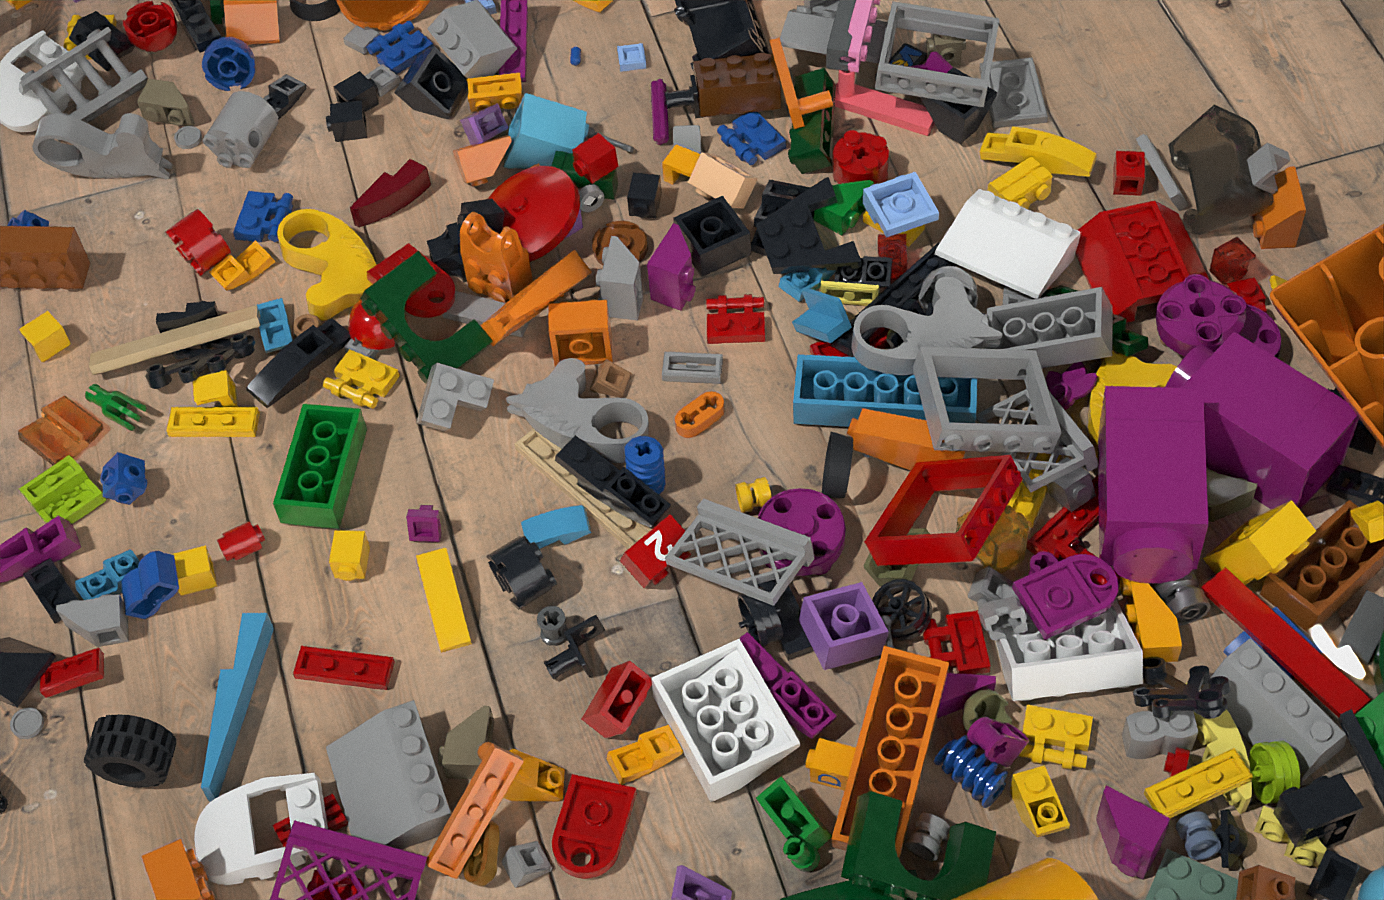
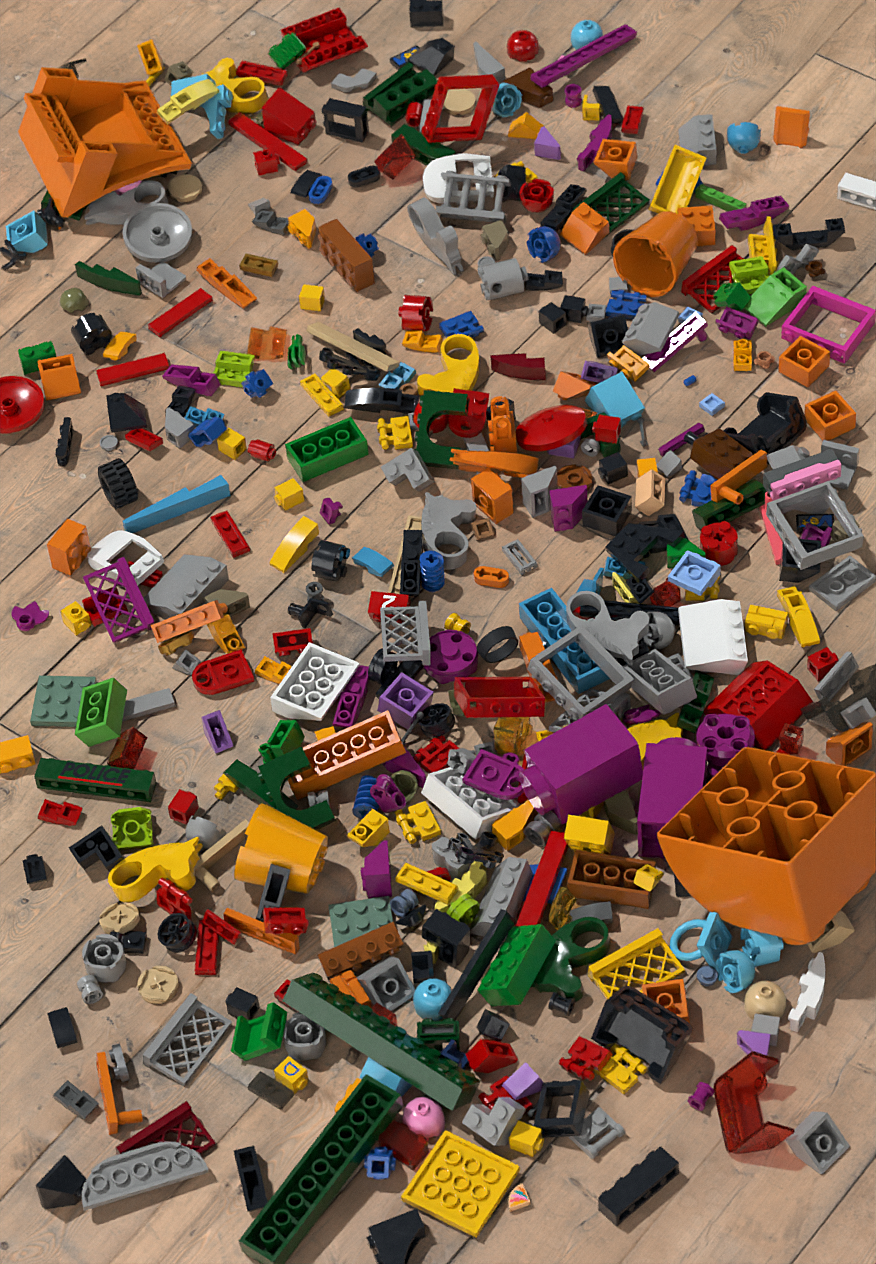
camera: 55 degrees right, 5 degrees down
(488, 209) = (522, 408): black brick -> none
(735, 327) = (562, 560): red plate -> none

